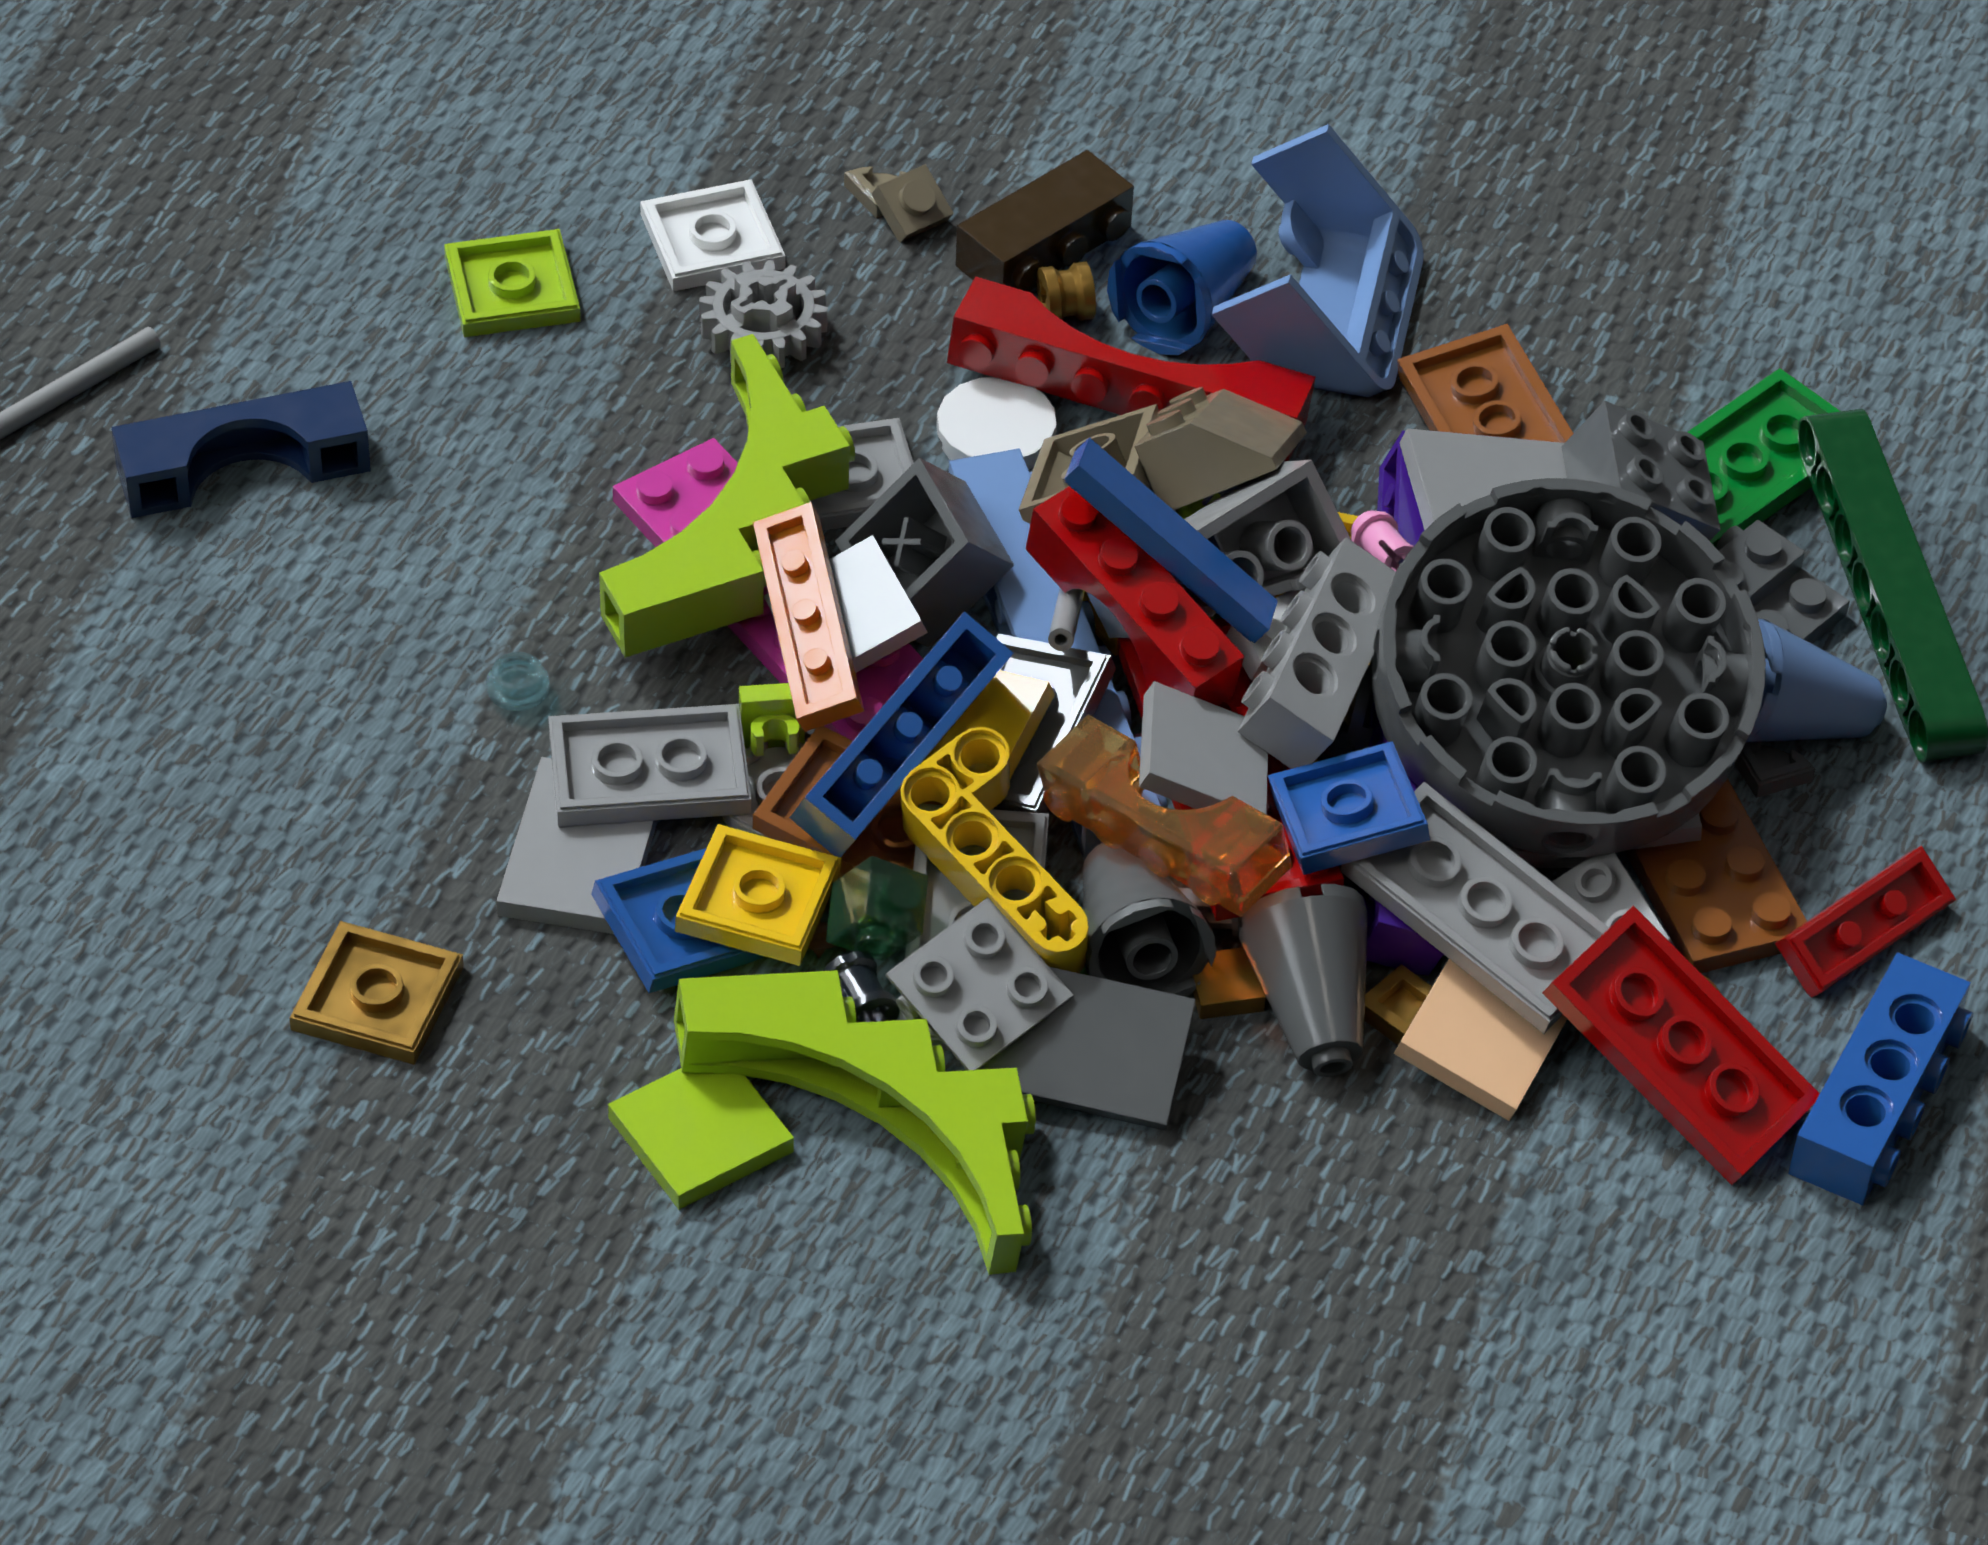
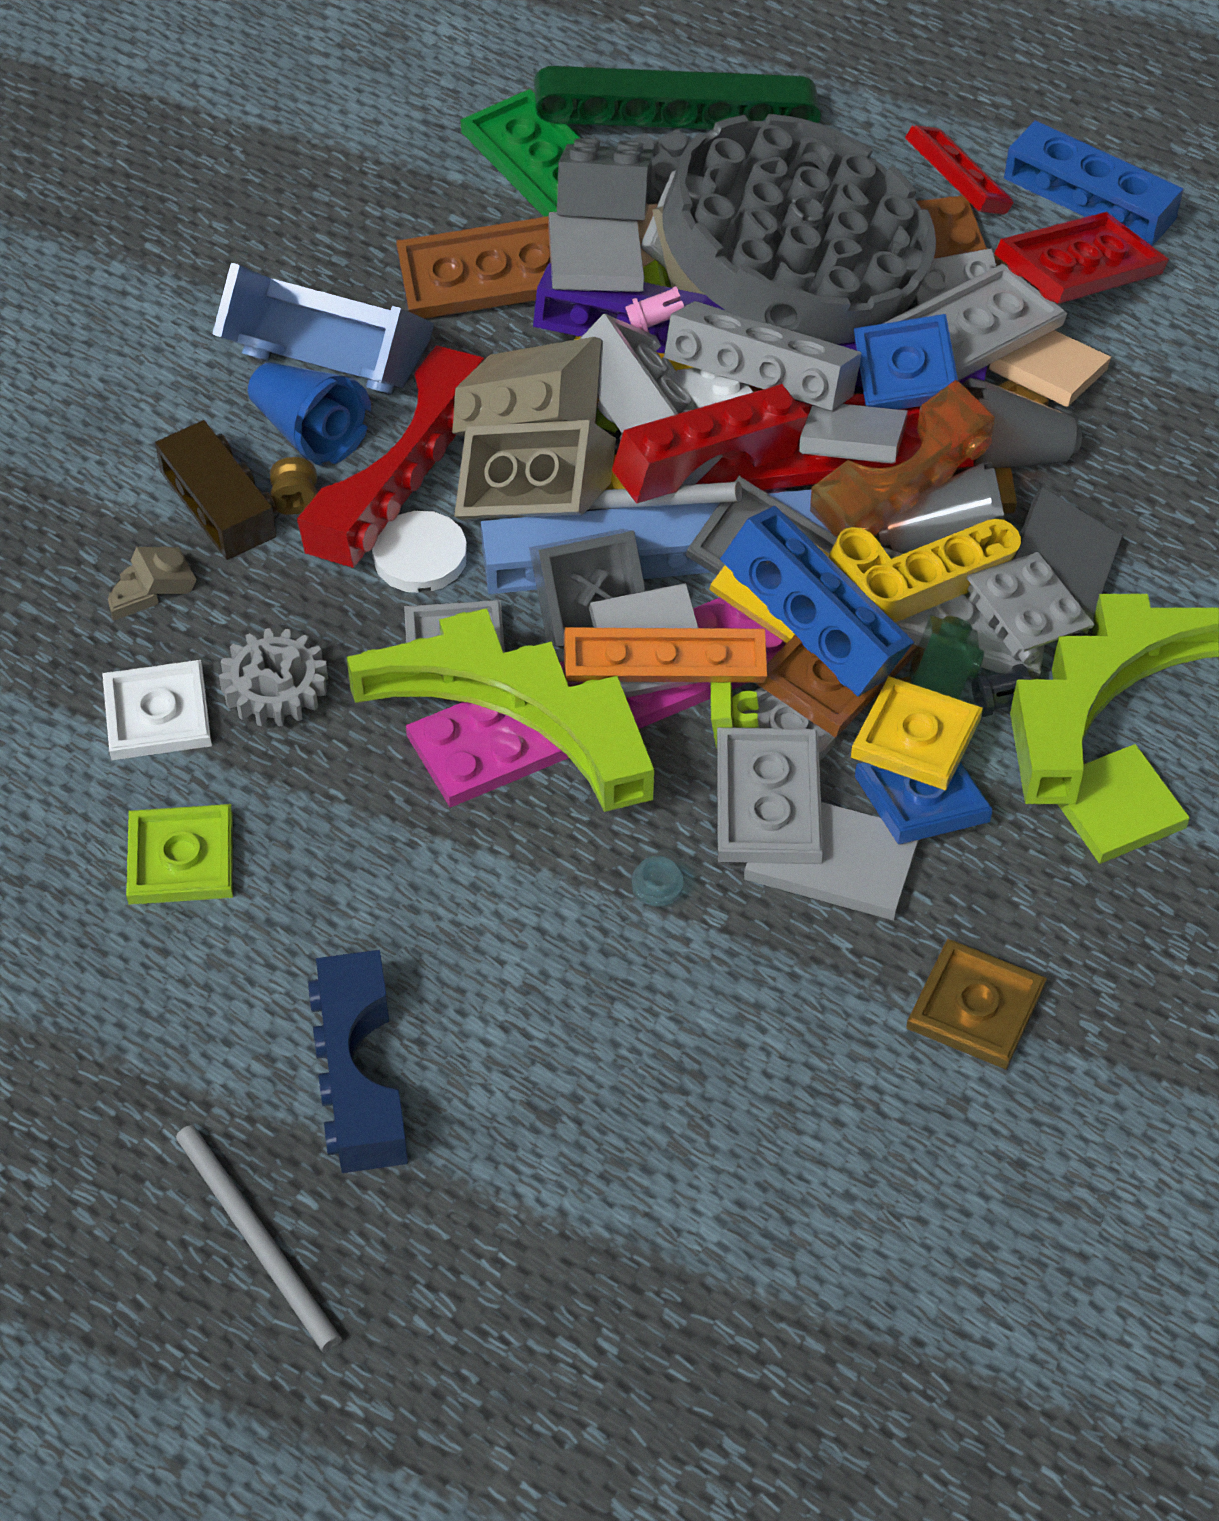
camera: 80 degrees left, 5 degrees up
(1171, 540) = (681, 396): blue tile -> none

